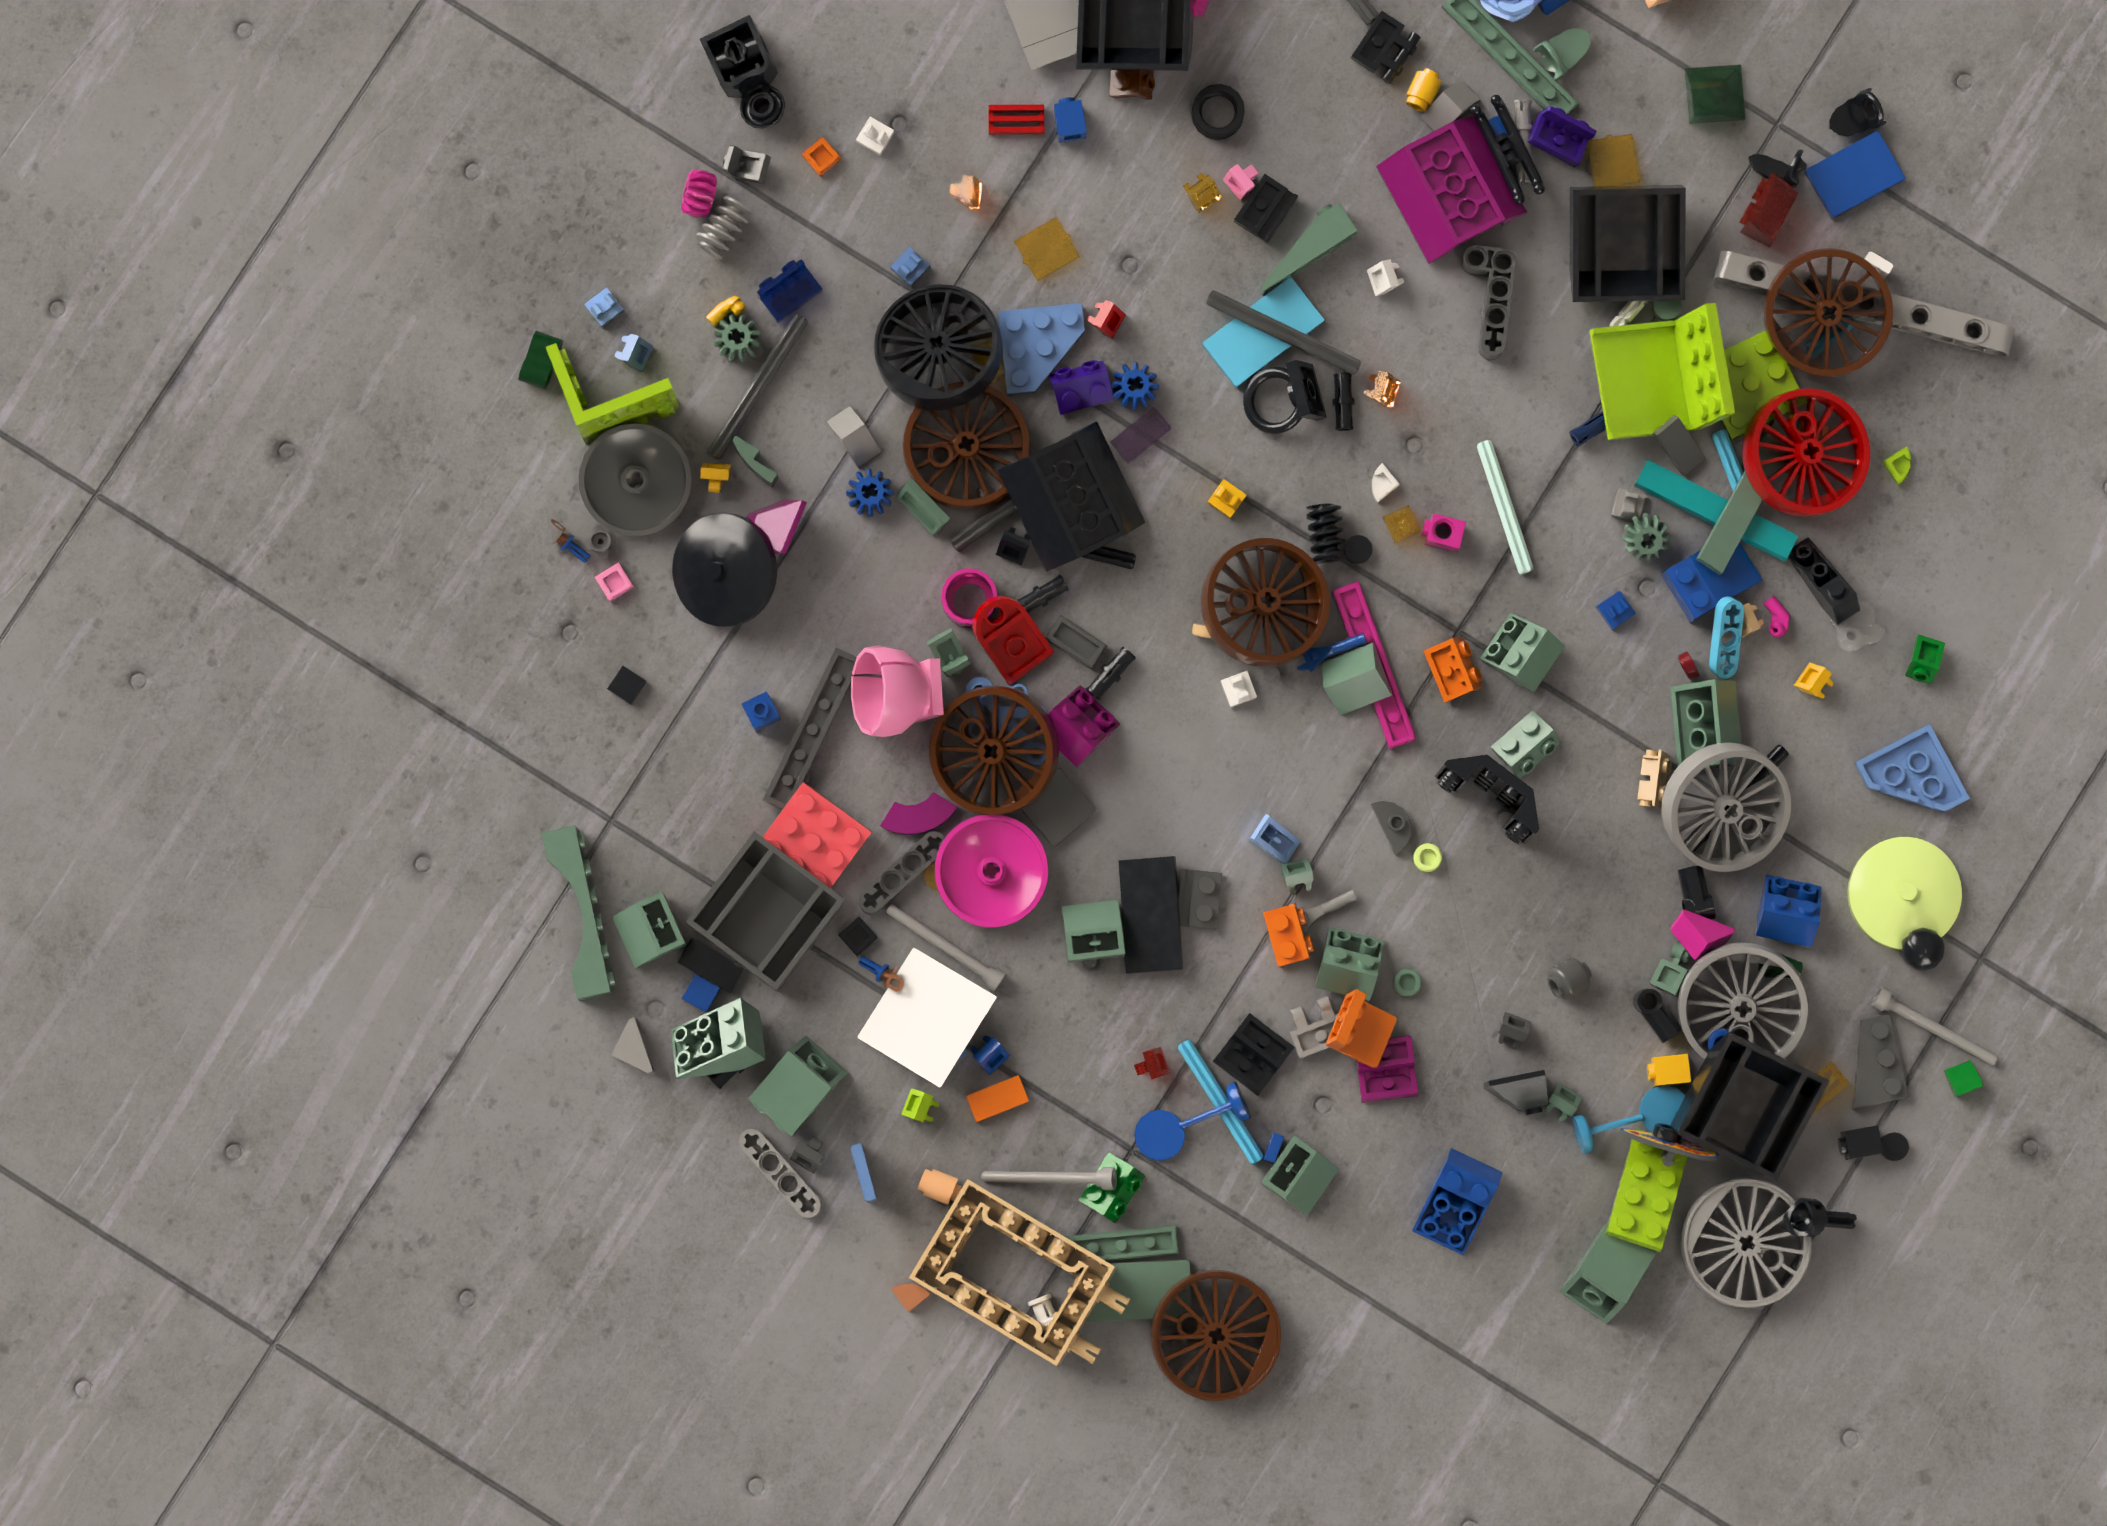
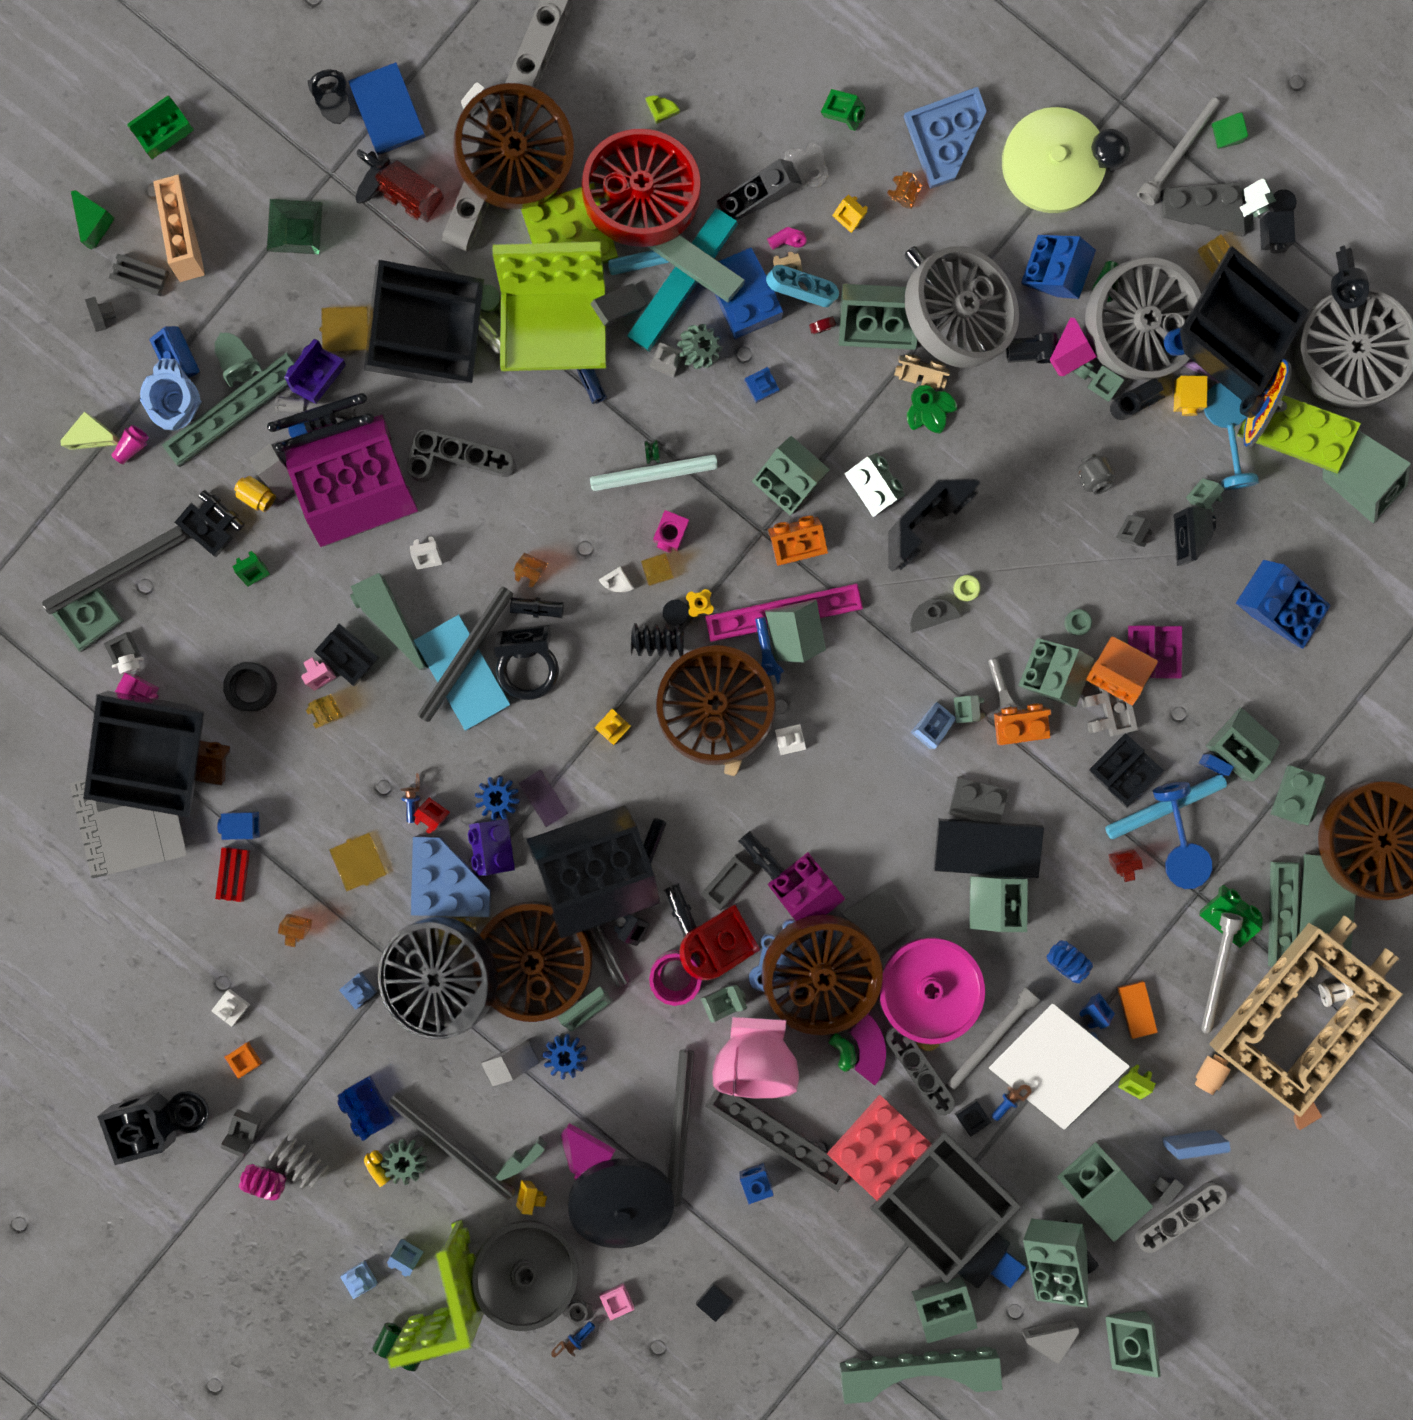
camera: 75 degrees left, 5 degrees up
(639, 1135) = (1133, 1343): none -> sand green slope
(812, 624) = (680, 1123): none -> dark grey axle
(911, 791) = (847, 1052): none -> green arm
(1041, 1014) = (1069, 961): none -> blue gear
(1121, 295) = (410, 798): none -> piece
(1251, 1242) = (1298, 795): none -> sand green bracket
(1342, 96) = (250, 569): none -> green tile
(1375, 566) = (706, 606): none -> yellow plate
(1527, 501) = (652, 451): none -> dark green bush
(1611, 795) = (932, 412): none -> green plate
(1847, 736) = (906, 191): none -> clear orange tile
(1894, 1117) = (1257, 198): none -> bracket

